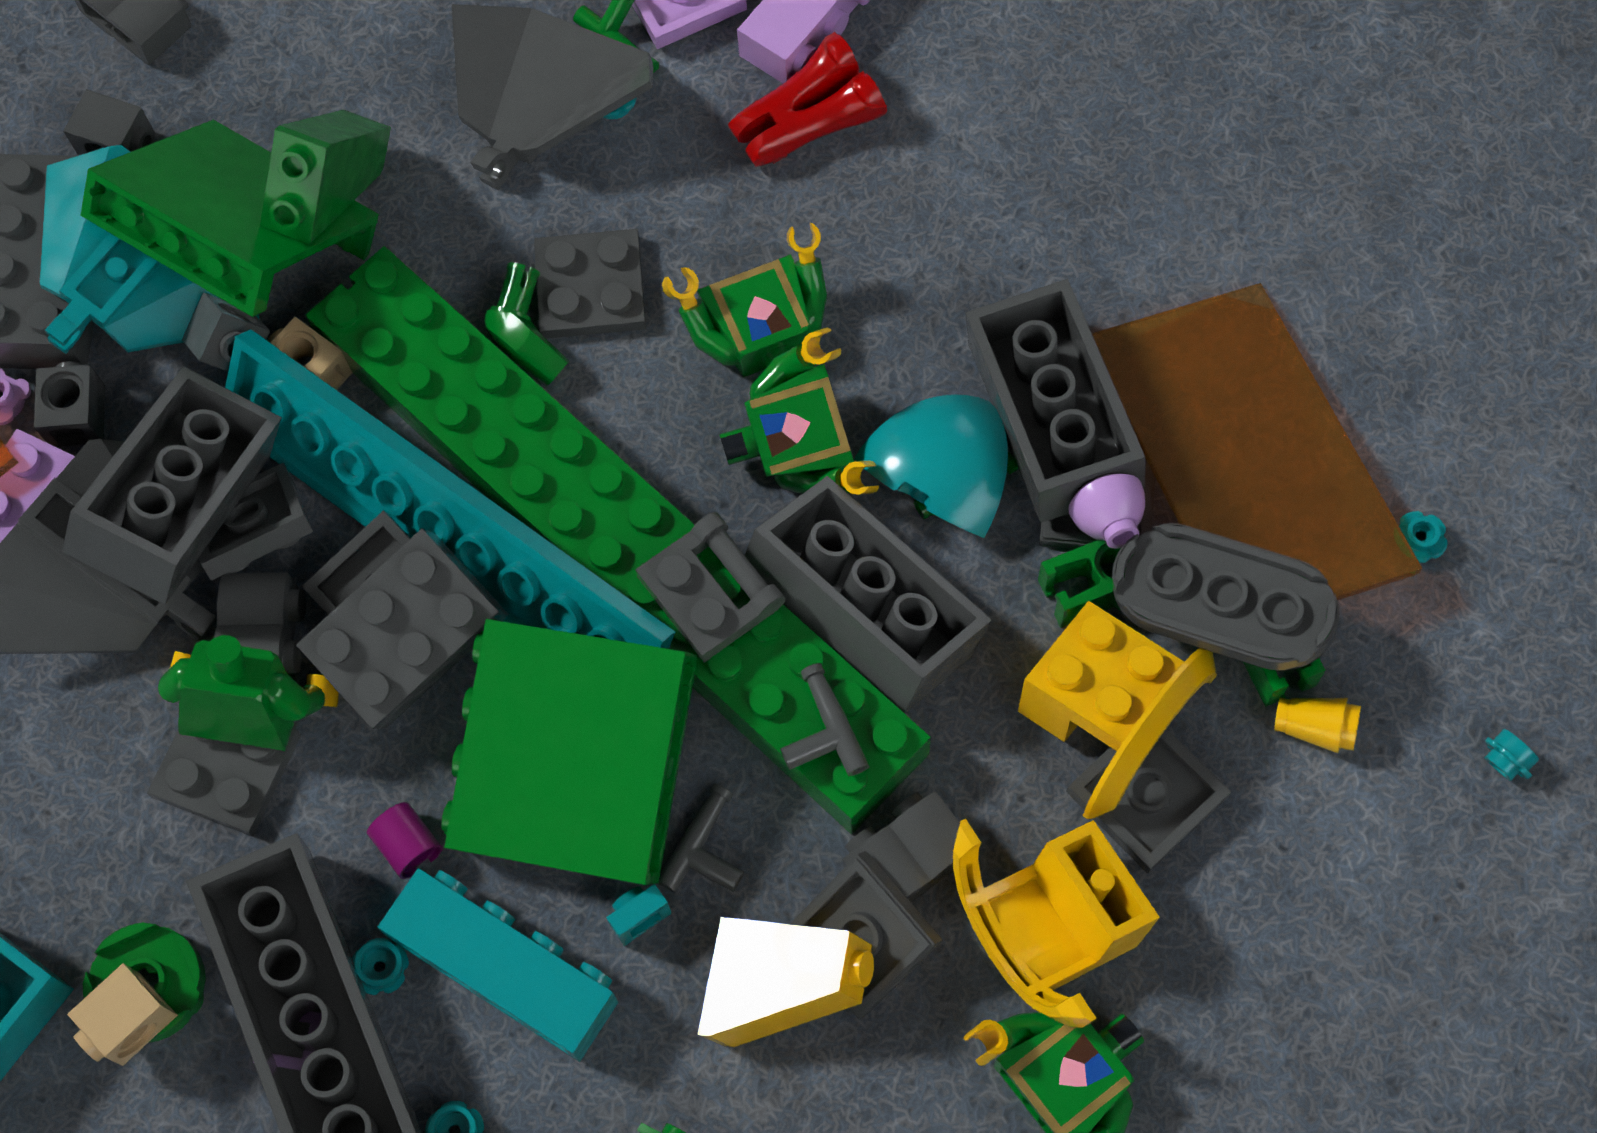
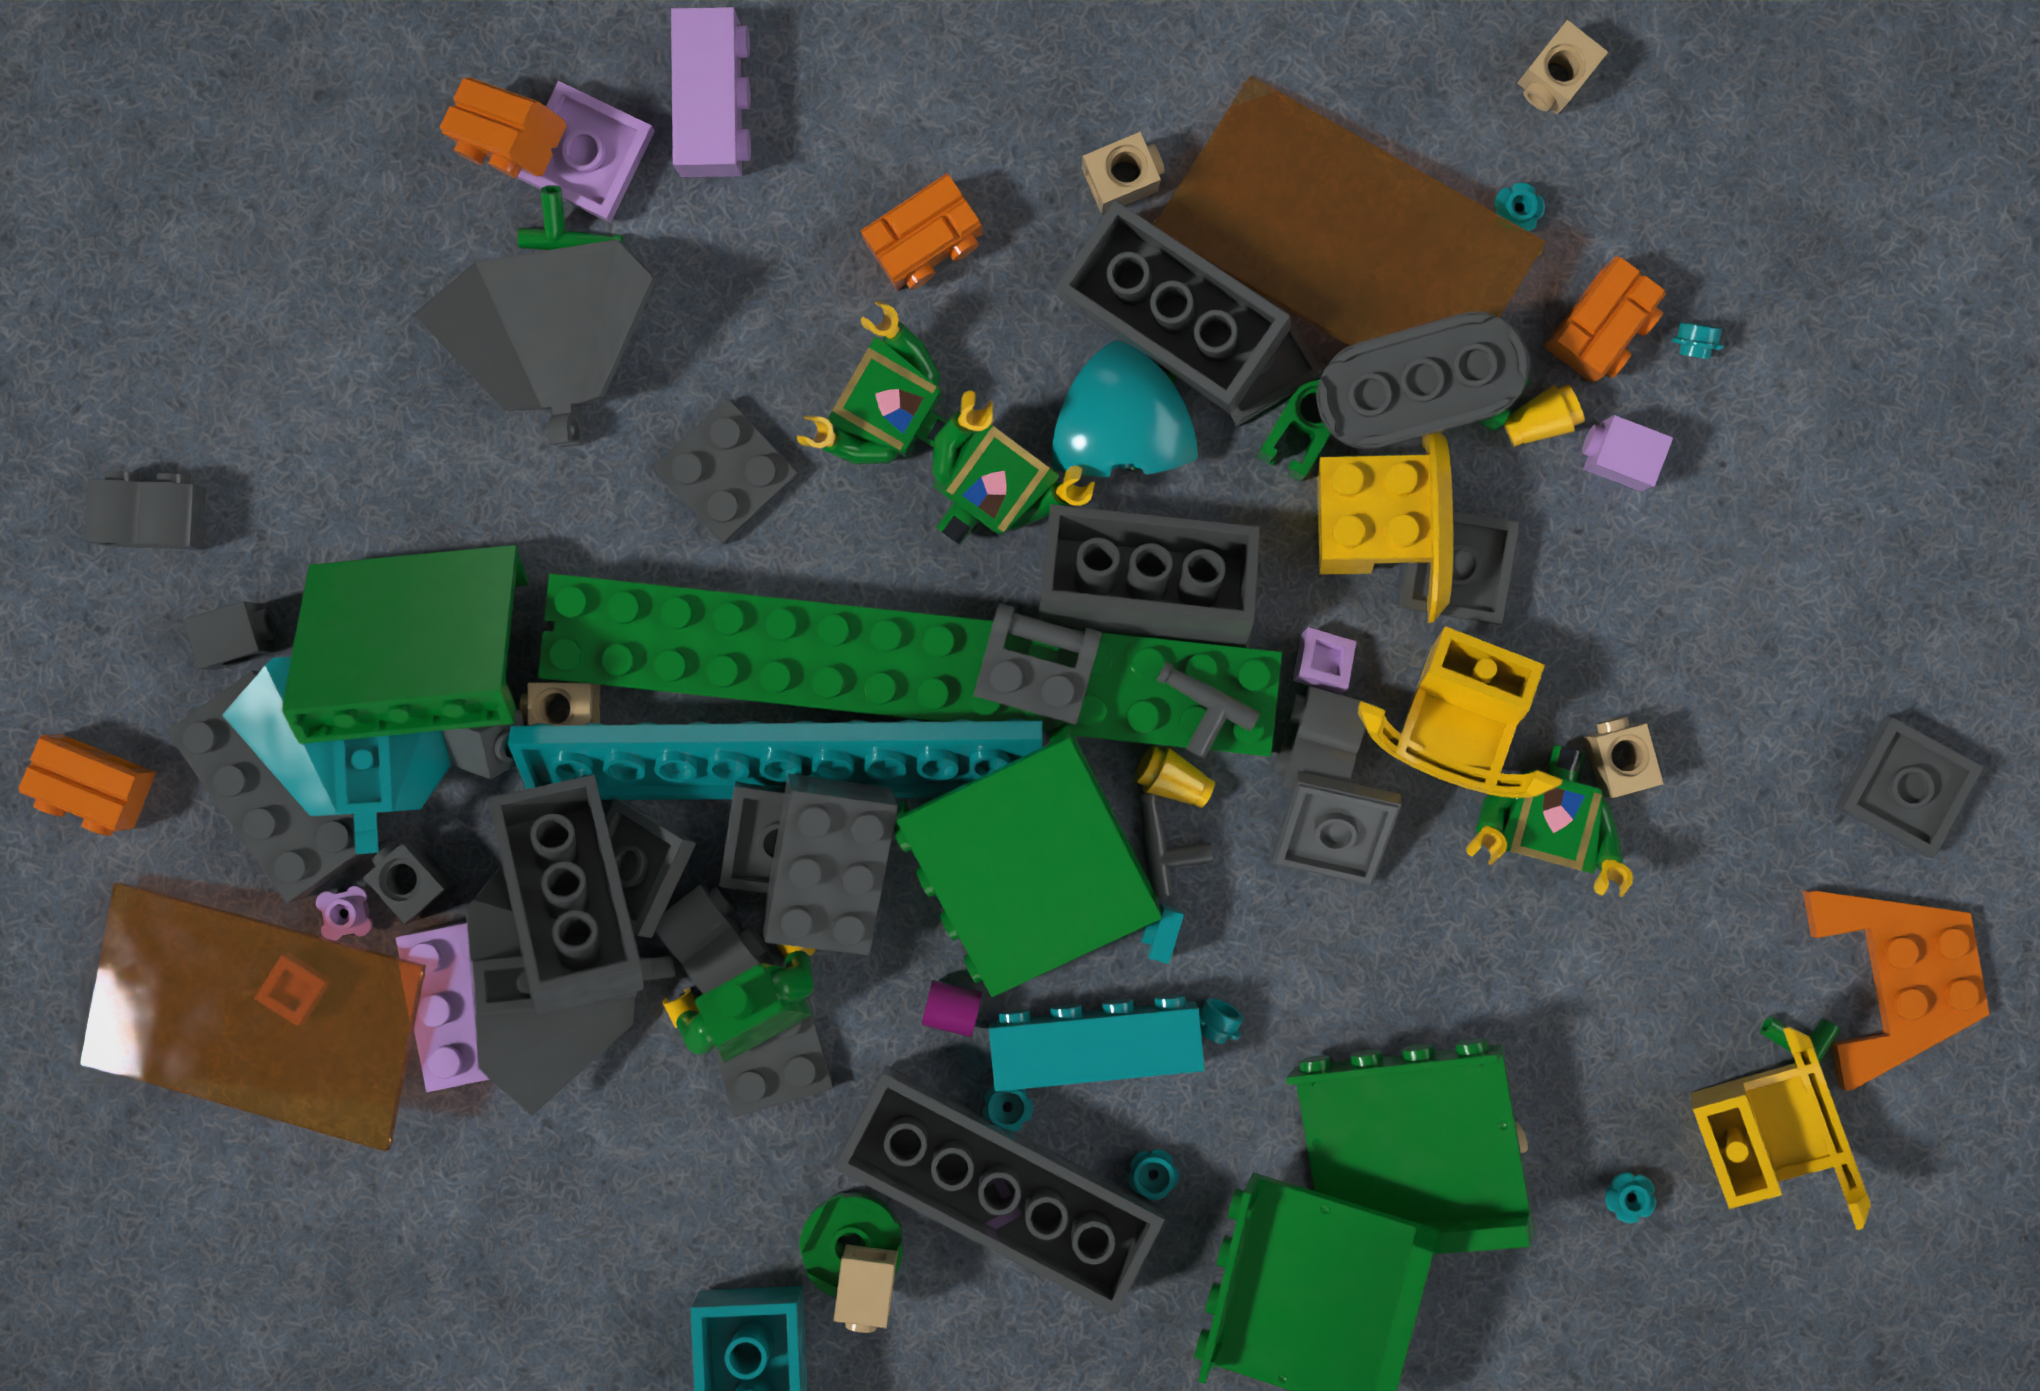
camera: 45 degrees left, 20 degrees up
(320, 171) = (453, 554): green slope -> none
(516, 333) = (705, 558): green arm -> none
(625, 1034) = (1220, 1021): none -> teal plate
(755, 787) = (1173, 777): none -> yellow cone
(779, 978) = (1302, 903): slope -> none
(812, 103) = (770, 145): red piece -> none
(893, 214) = (923, 233): none -> orange brick
(966, 784) = (1324, 661): none -> lavender plate
(1096, 259) = (1106, 187): none -> tan brick
(1109, 508) = (1286, 372): lavender brick -> none
(1162, 1095) = (1641, 771): none -> tan brick
(1373, 802) = (1626, 452): none -> lavender brick
(1434, 678) = (1606, 320): none -> orange brick
(1549, 432) = (1576, 54): none -> tan brick

